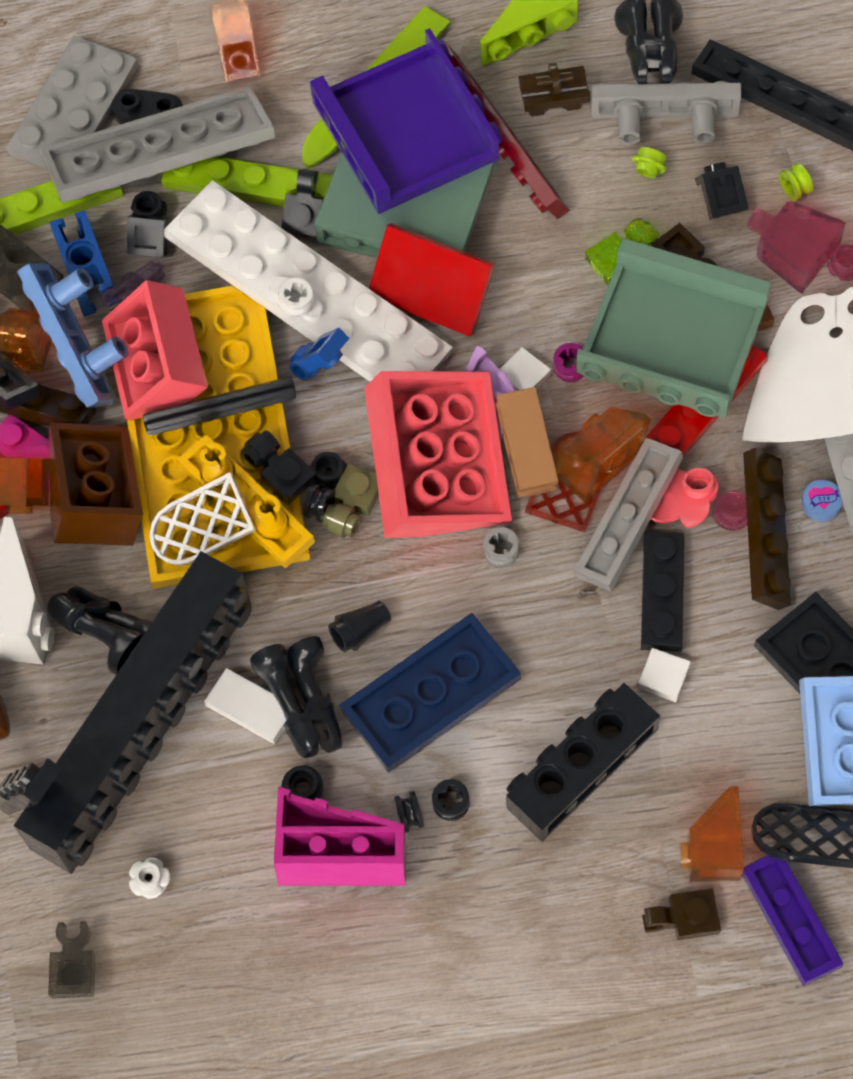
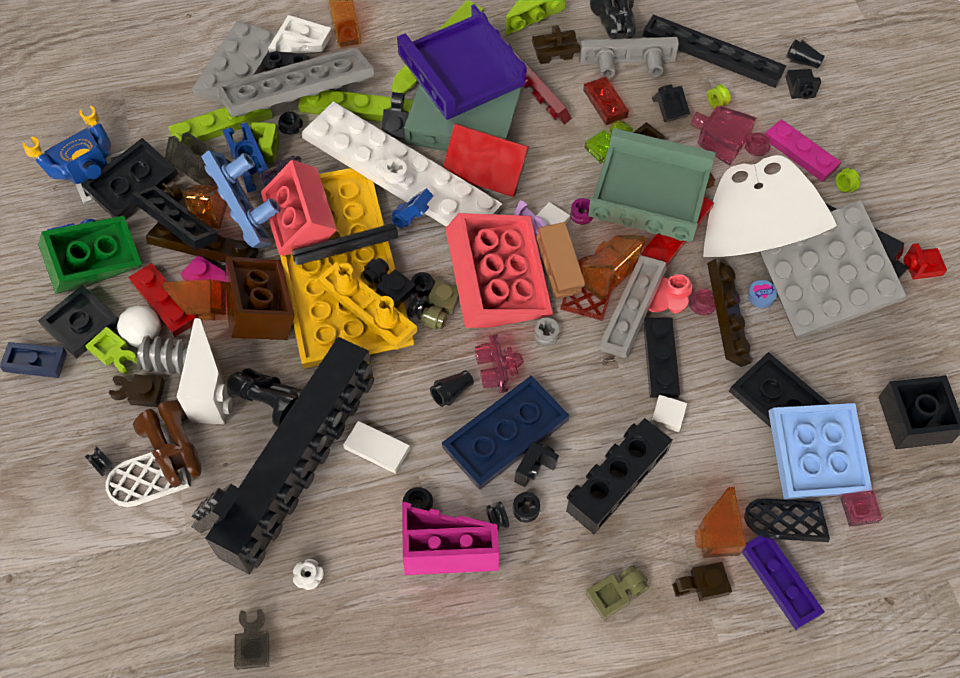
camera: 10 degrees left, 5 degrees down
(112, 229) = (268, 140): none -> lime bracket
(146, 235) = (289, 139): black plate -> none
(168, 65) = (300, 36): none -> white wing
(227, 479) = (322, 307): white window -> none
(318, 717) = (423, 457): black piece -> none
(418, 577) = (498, 374): none -> clear pink hips
(459, 741) = (533, 460): none -> black bracket
(554, 927) = (611, 596): none -> olive plate
(622, 183) = (605, 100): none -> clear red plate
(649, 162) = (623, 87): lime plate -> none

